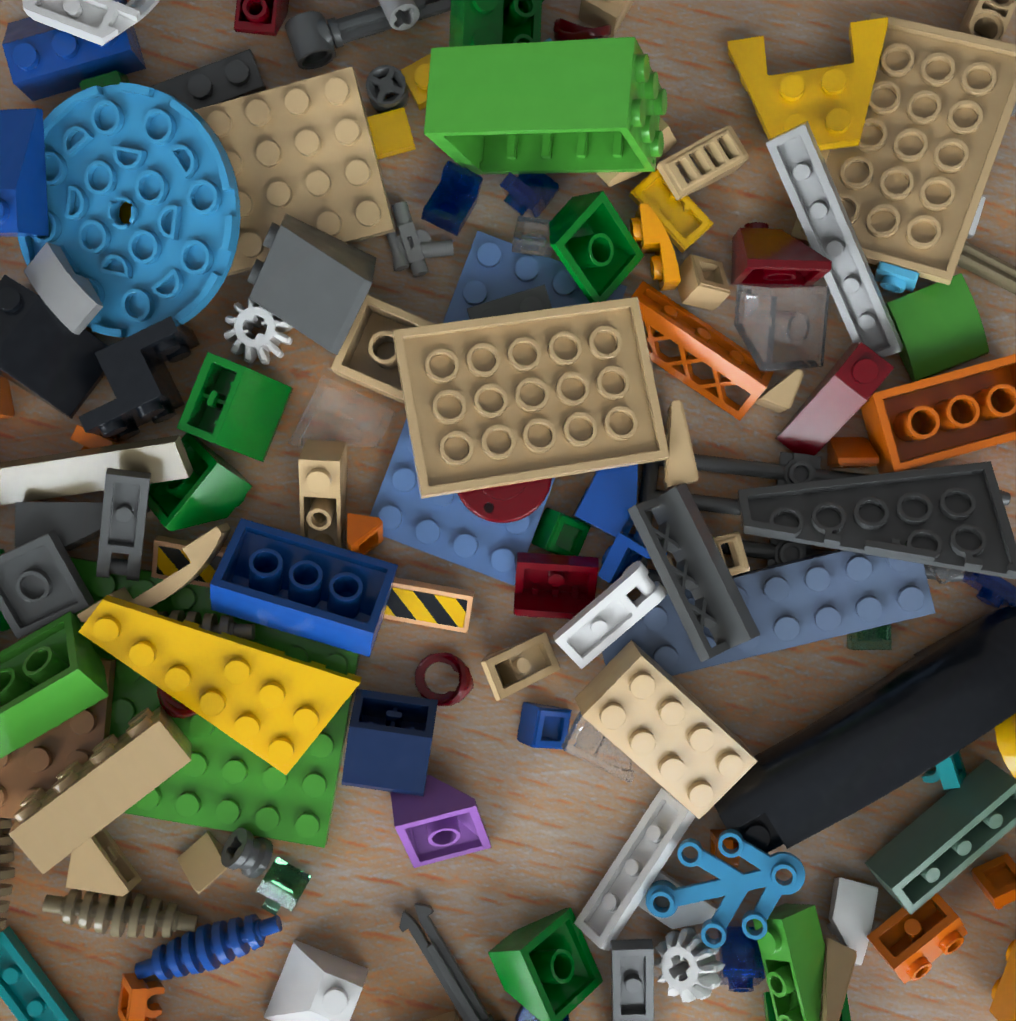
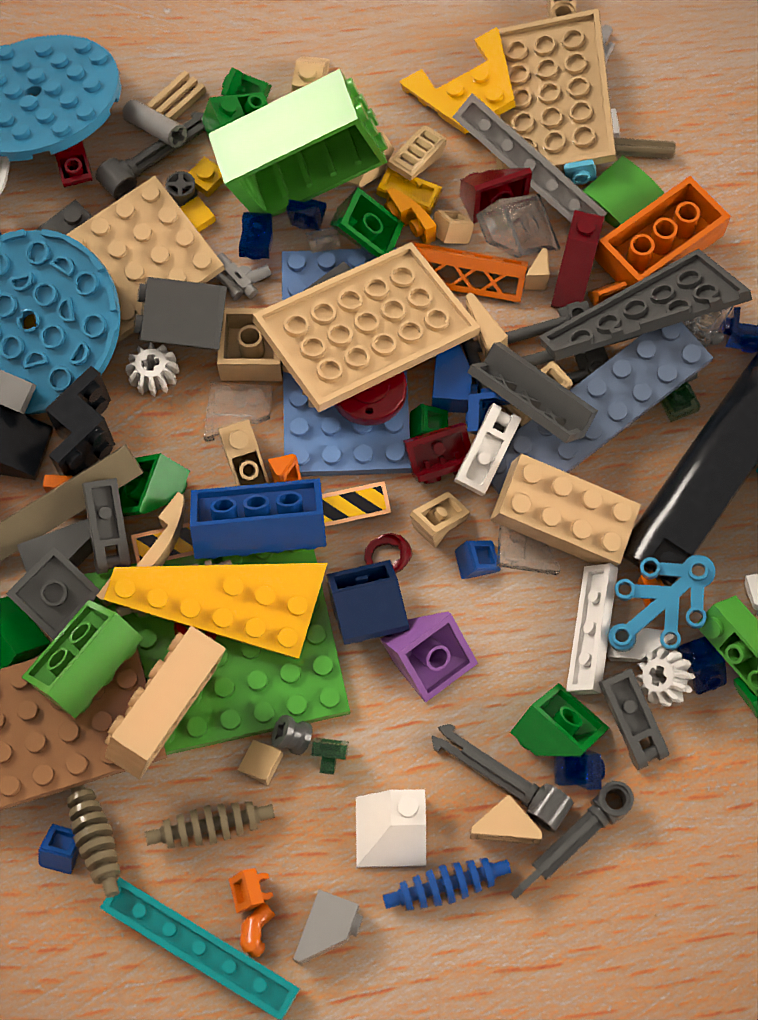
camera: 20 degrees left, 20 degrees down
(101, 867) = (176, 794): tan slope -> none
(208, 947) = (290, 823): blue piece -> none
(234, 407) = (156, 422): green slope -> none

